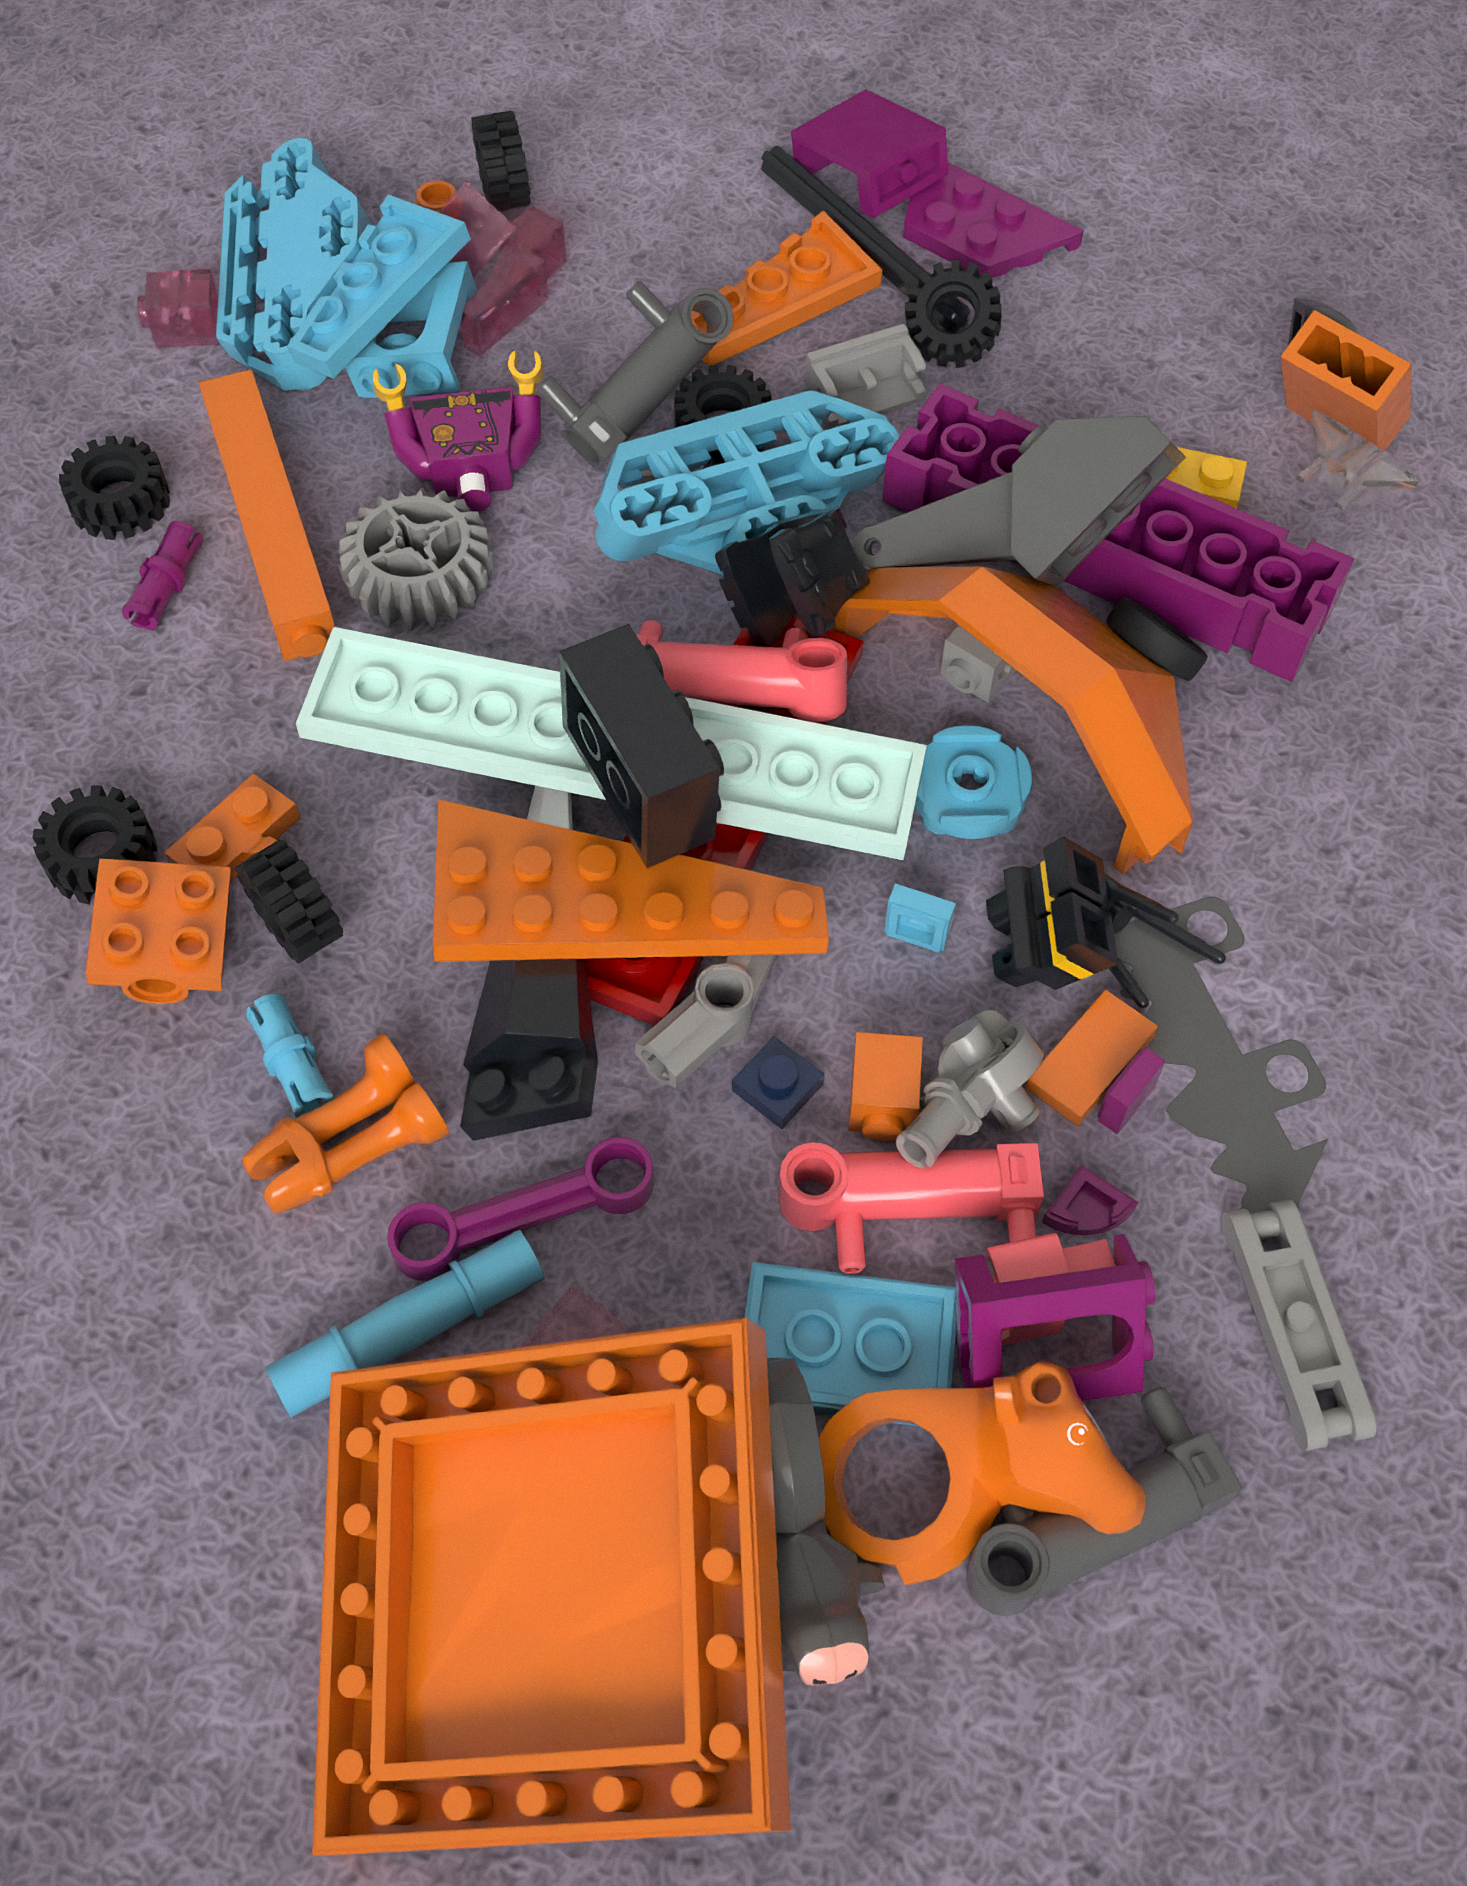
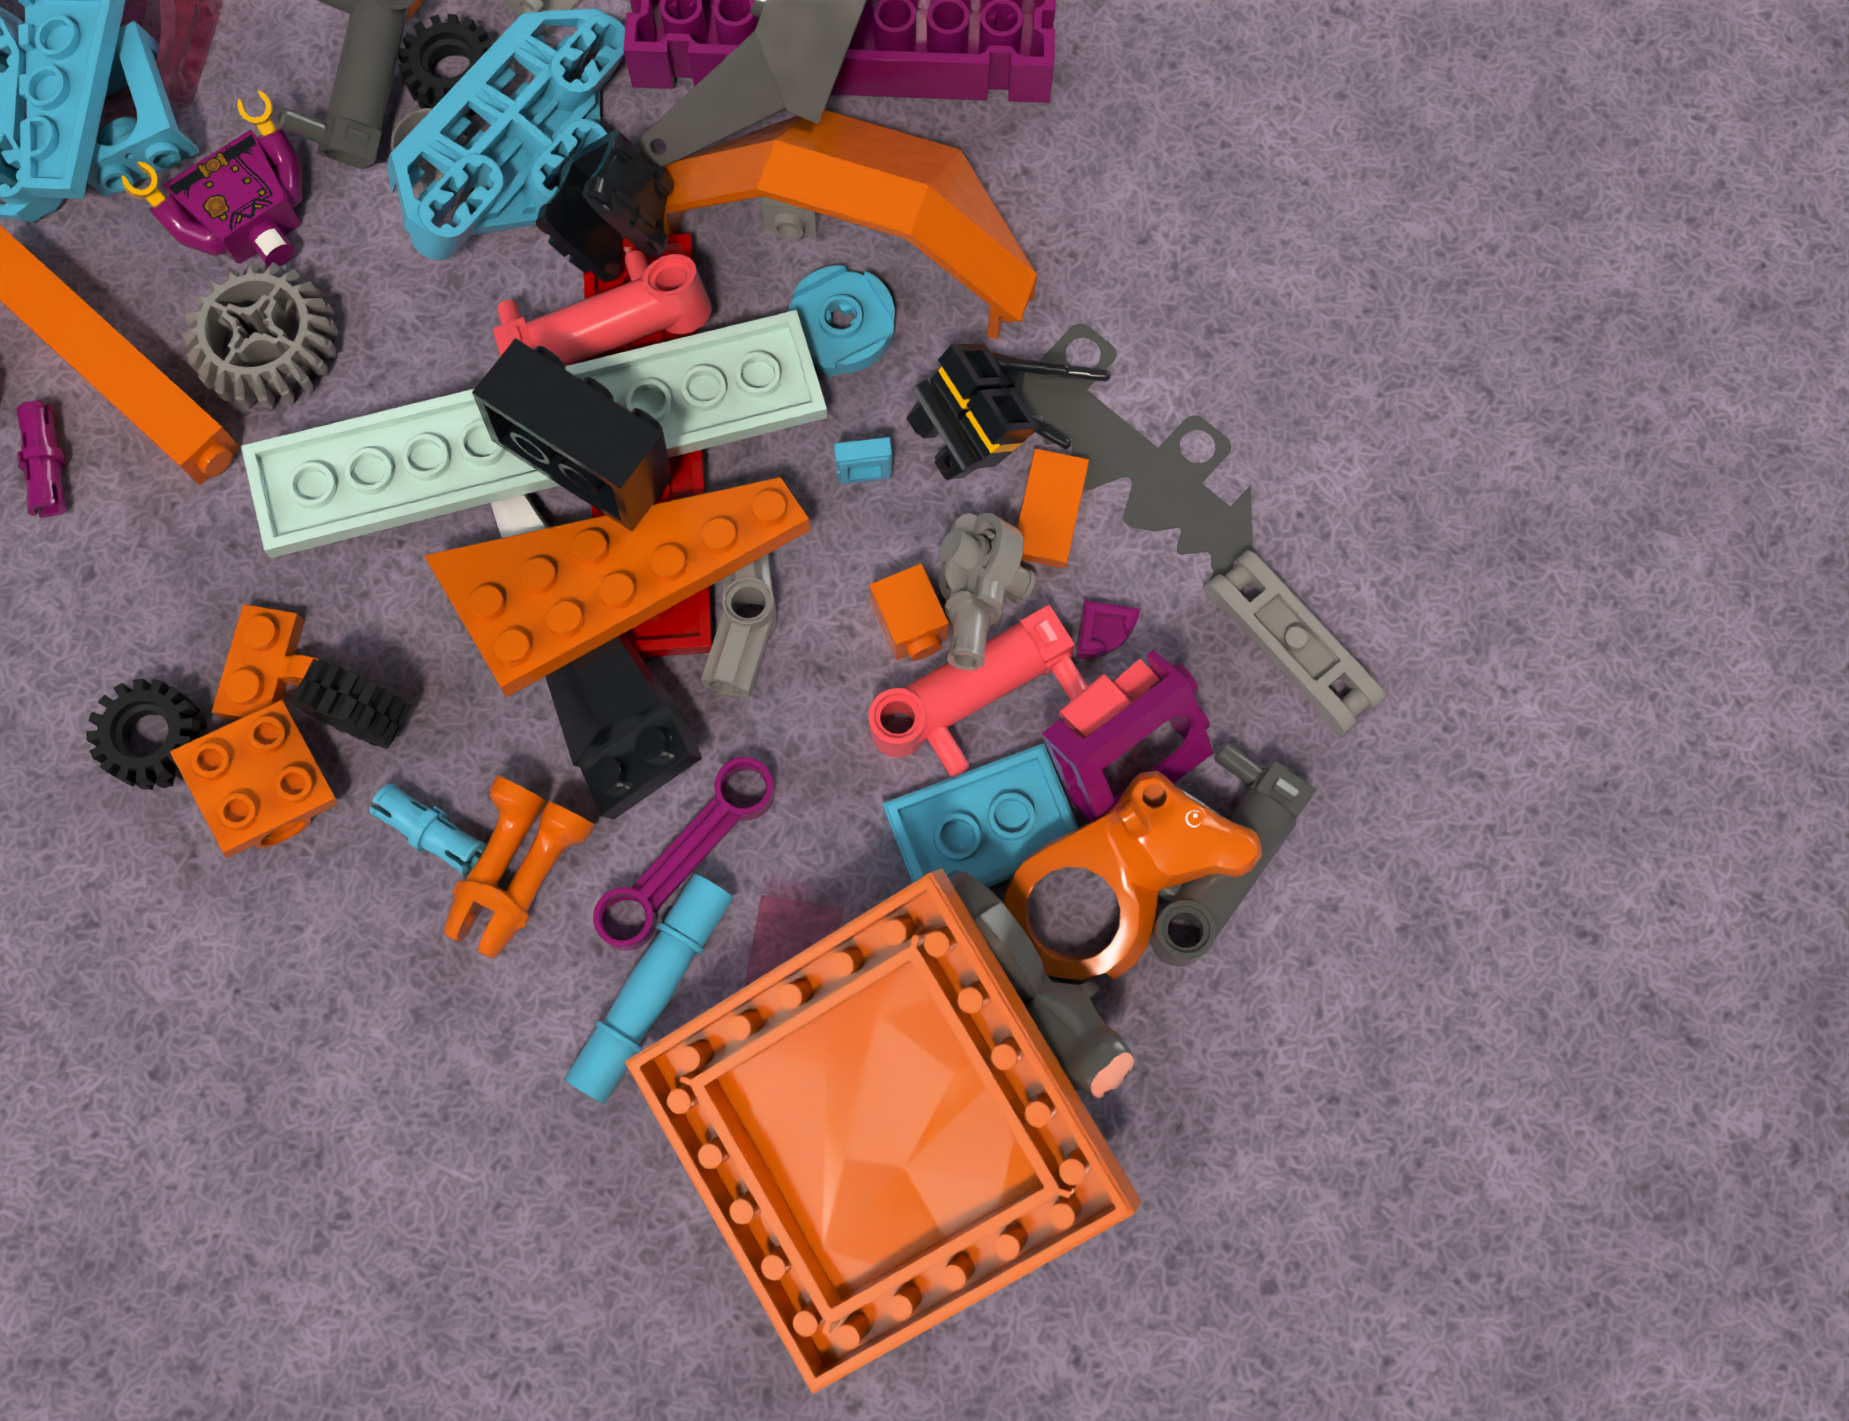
camera: 30 degrees left, 15 degrees up
(777, 1082) = (823, 650): dark blue plate -> none
(1130, 1090) = (1093, 523): magenta tile -> none
(1156, 639) = (929, 119): black tyre -> none

